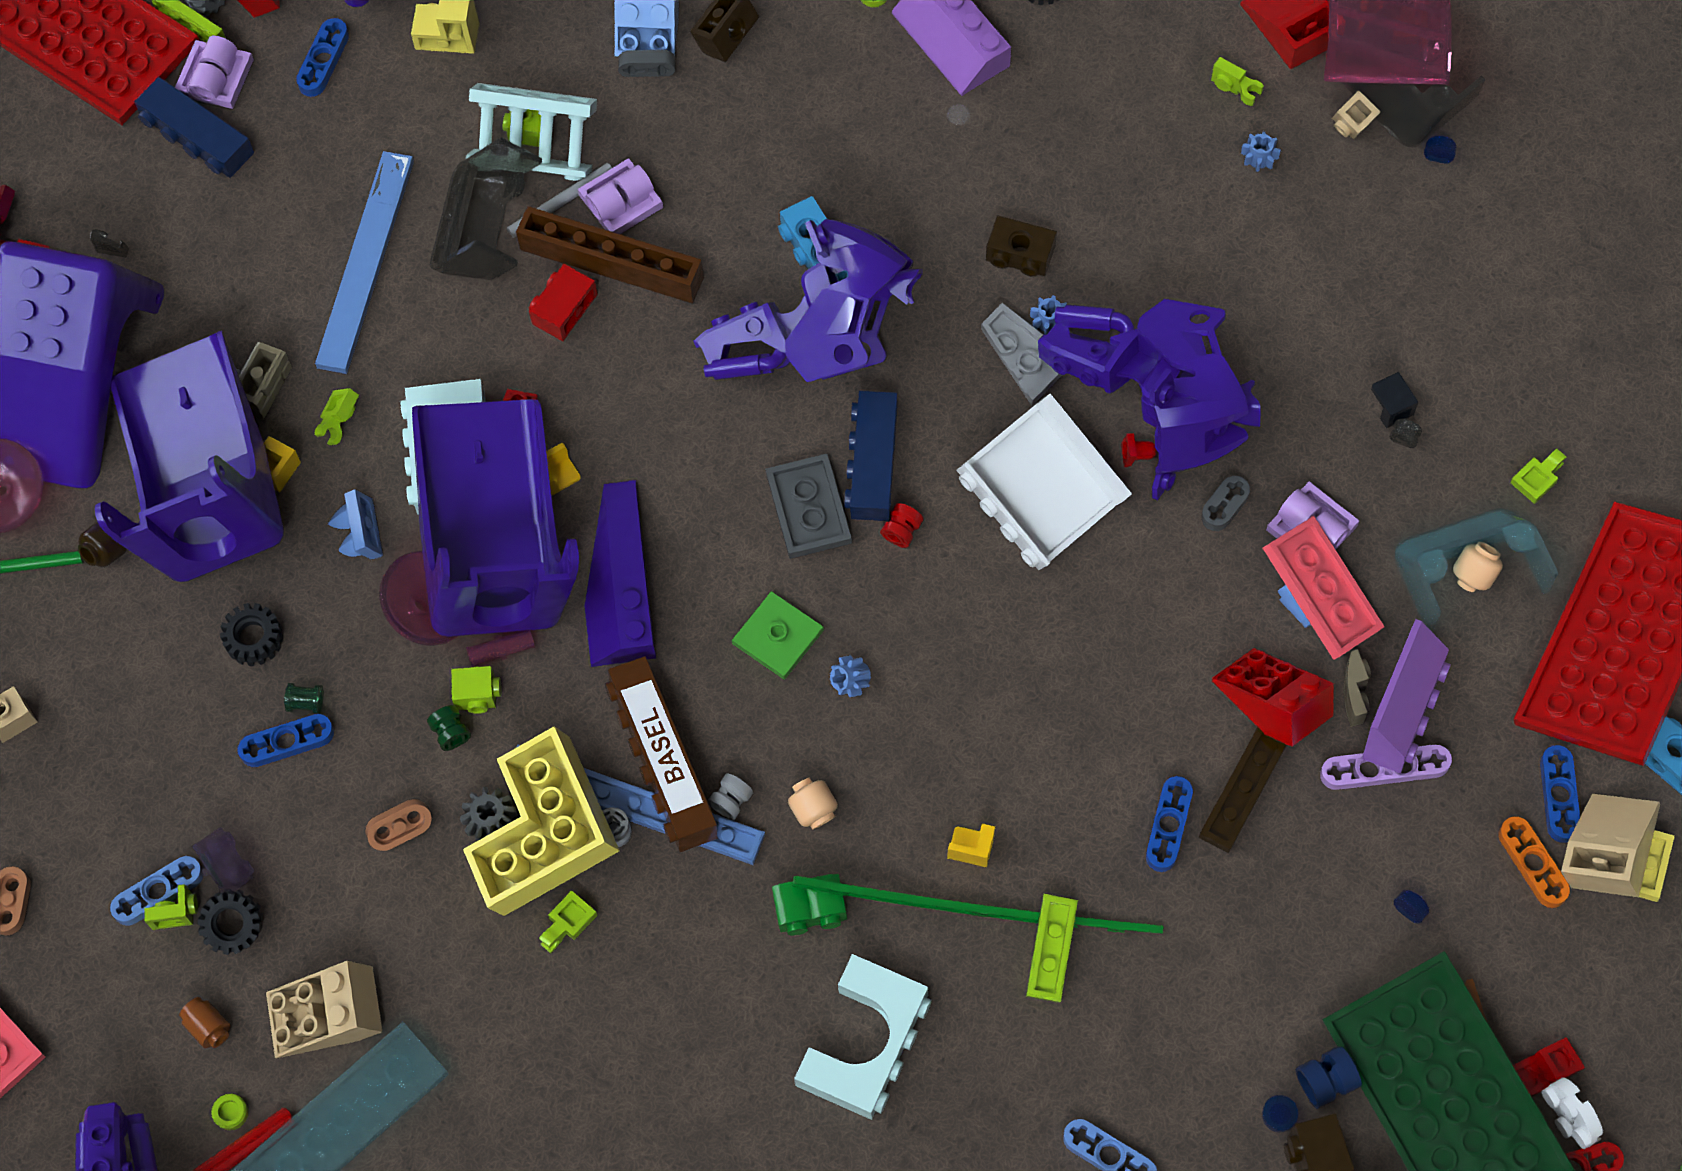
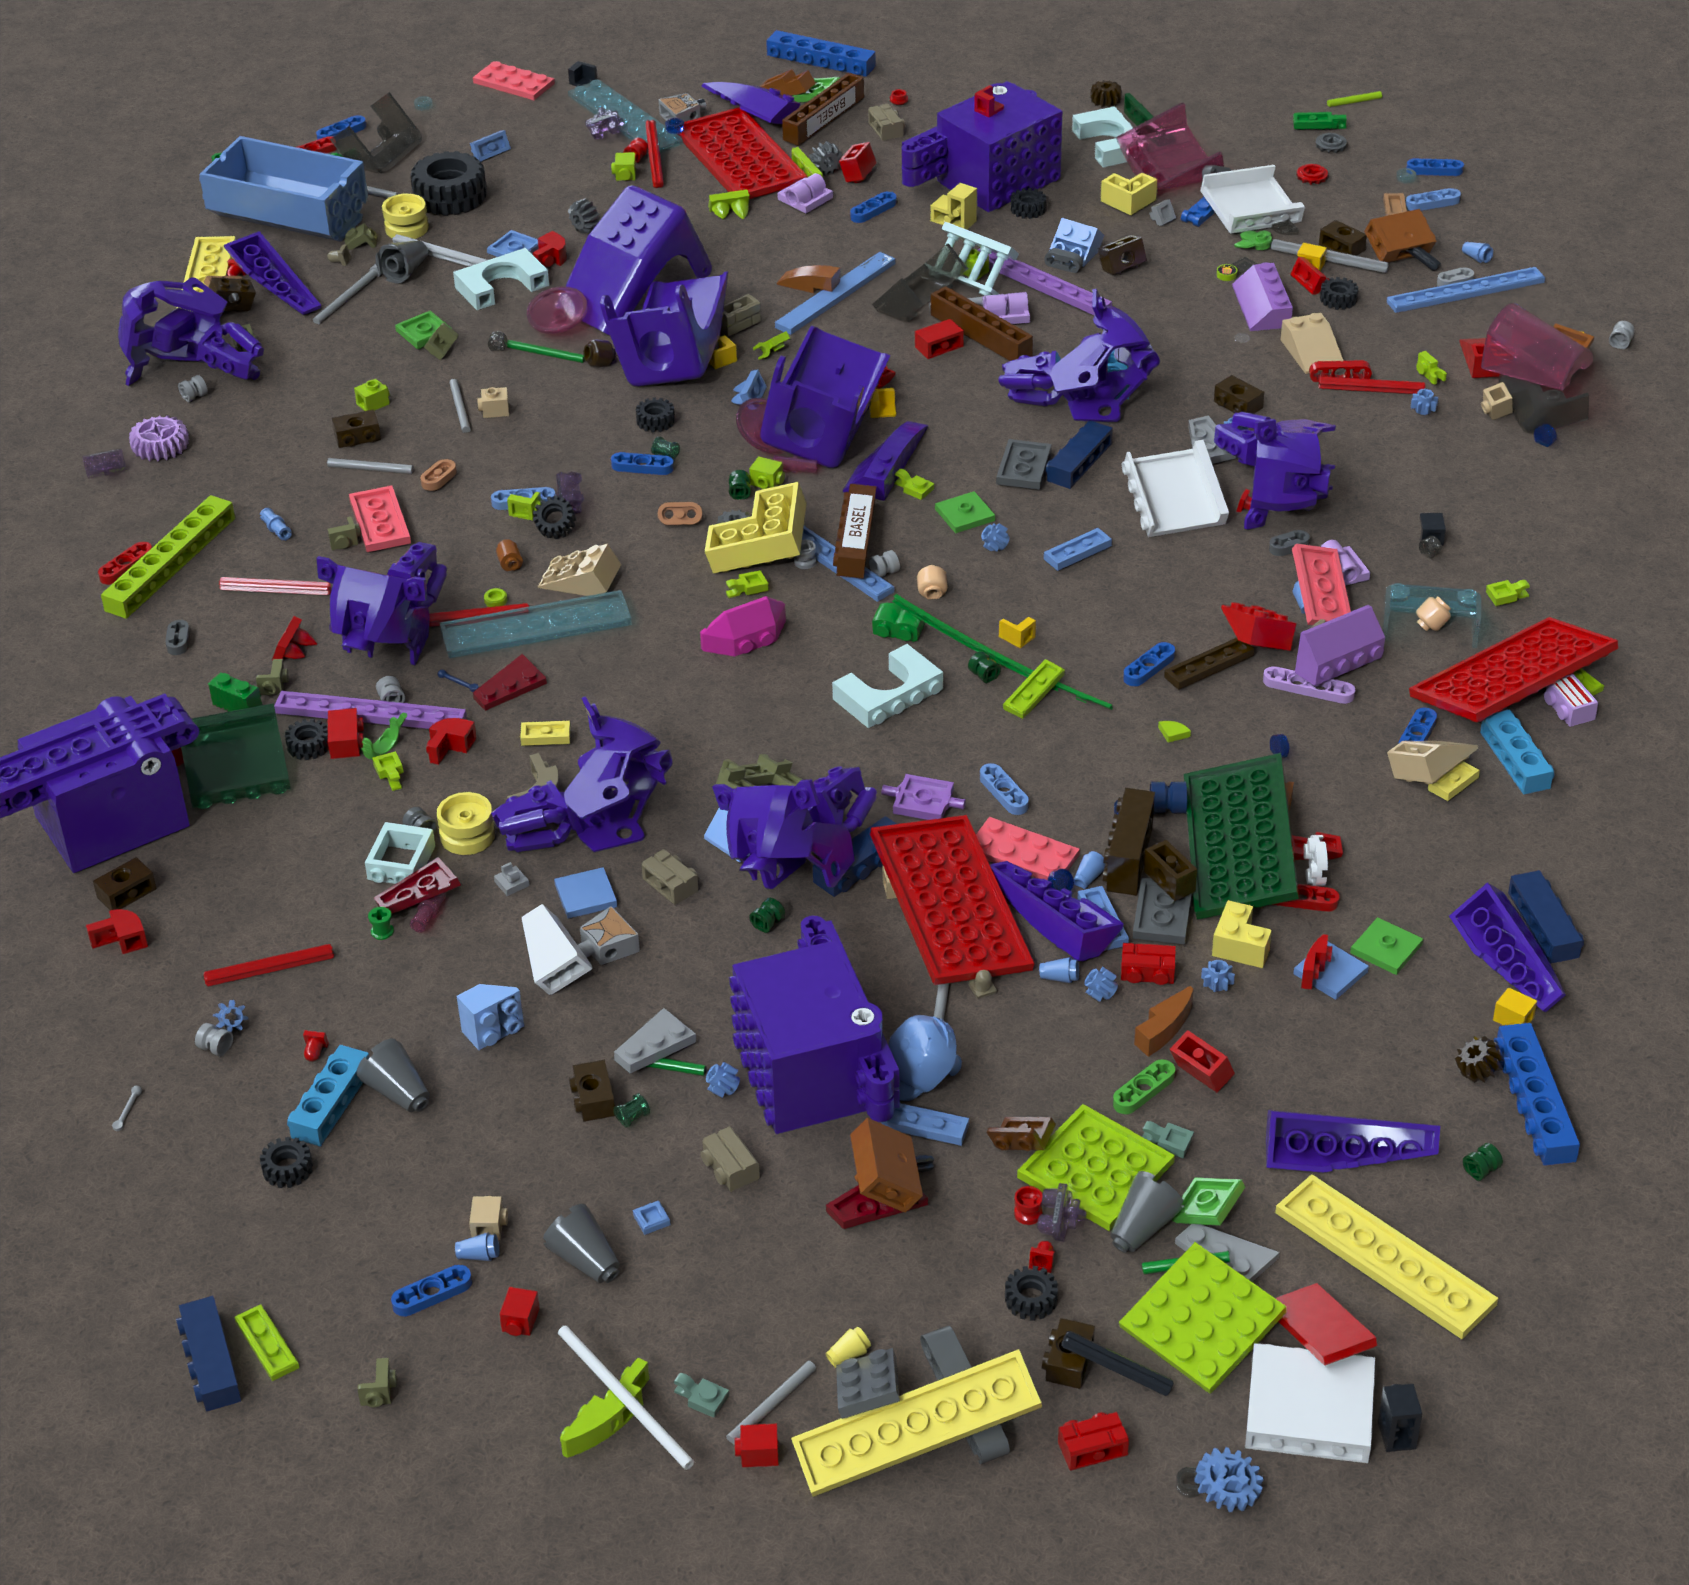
camera: 25 degrees right, 25 degrees down
(126, 131) = (733, 200): none -> lime tile
(194, 128) = (777, 211): dark blue brick -> none
(317, 252) = (811, 278): none -> dark orange slope
(620, 1024) = (744, 627): none -> dark pink wedge
(662, 122) = (1046, 283): none -> medium lavender plate
(687, 614) = (916, 487): none -> lime plate
(902, 525) = (1076, 487): red wheel -> none
(965, 644) = (1077, 549): none -> medium blue plate
(967, 937) = (984, 667): none -> dark green wheel
(1061, 96) = (1310, 340): none -> tan slope
(1124, 133) = (1356, 365): none -> red beam
(1174, 142) = (1370, 385): none -> red axle
(1263, 936) = (1173, 730): none -> lime tile
(1554, 879) = (1380, 749): orange beam -> none

